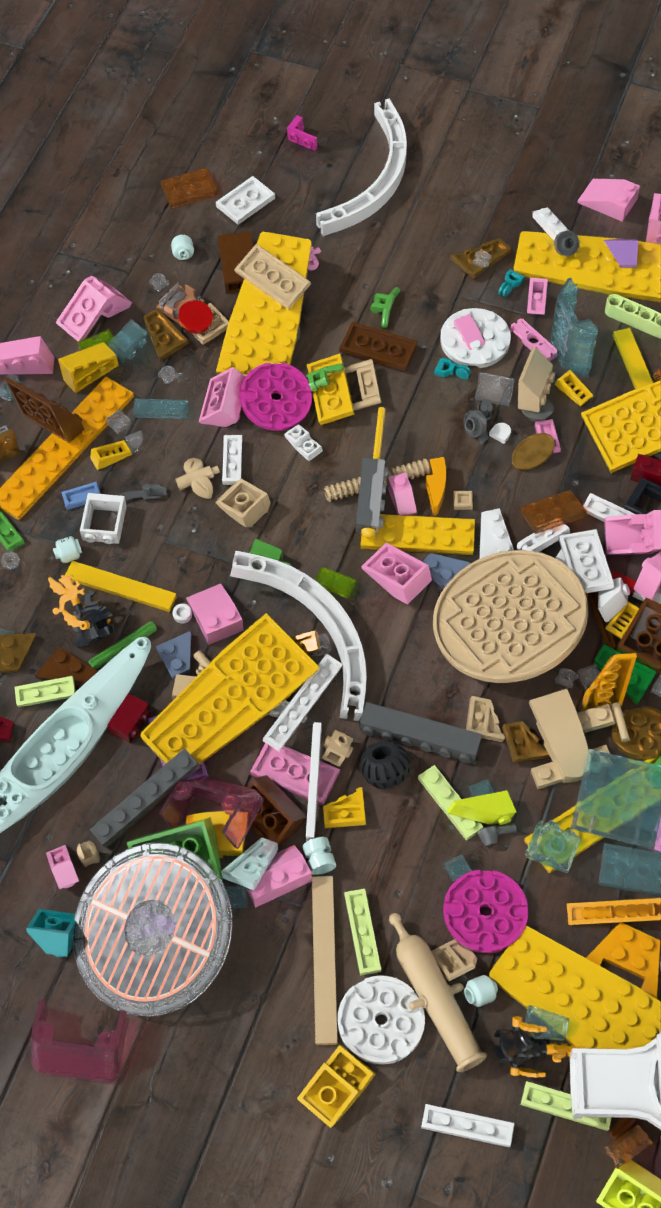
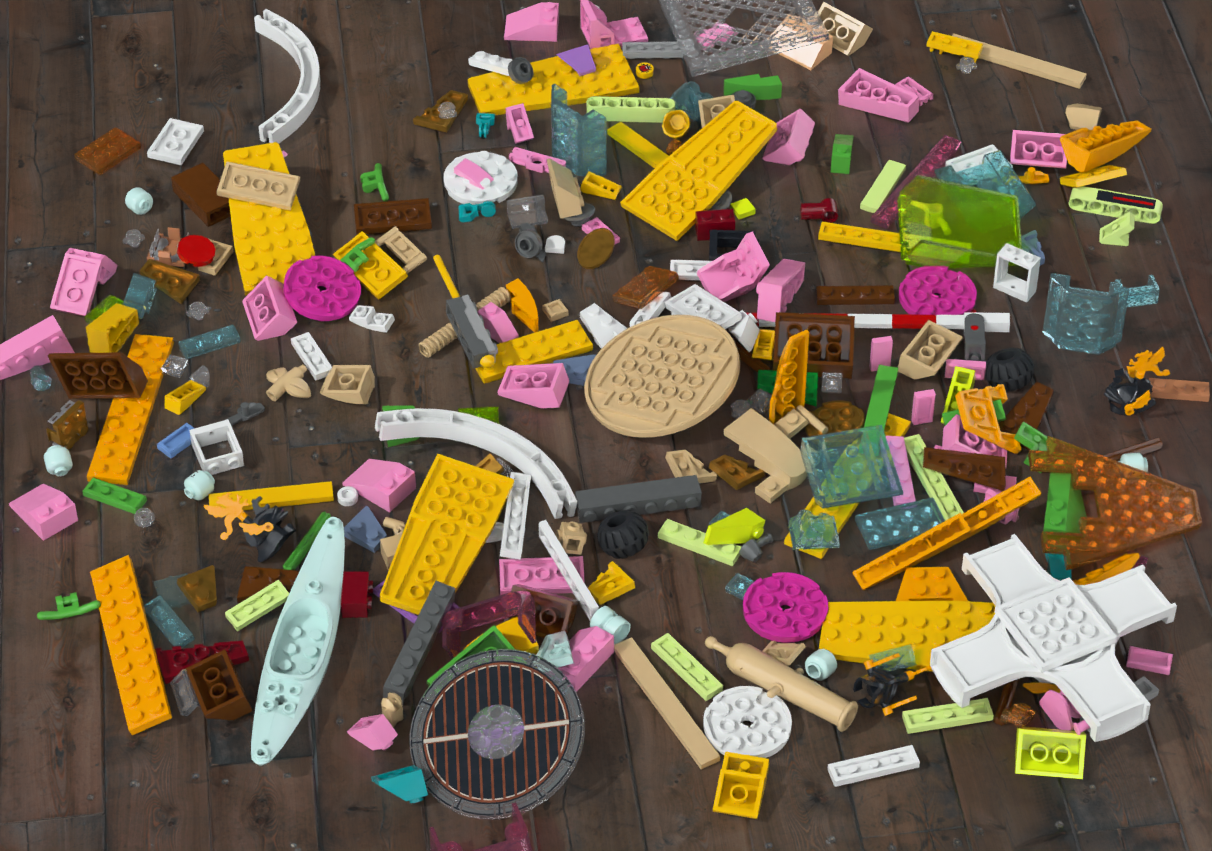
camera: 30 degrees left, 15 degrees down
(296, 134) = (196, 70): dark pink bracket -> none

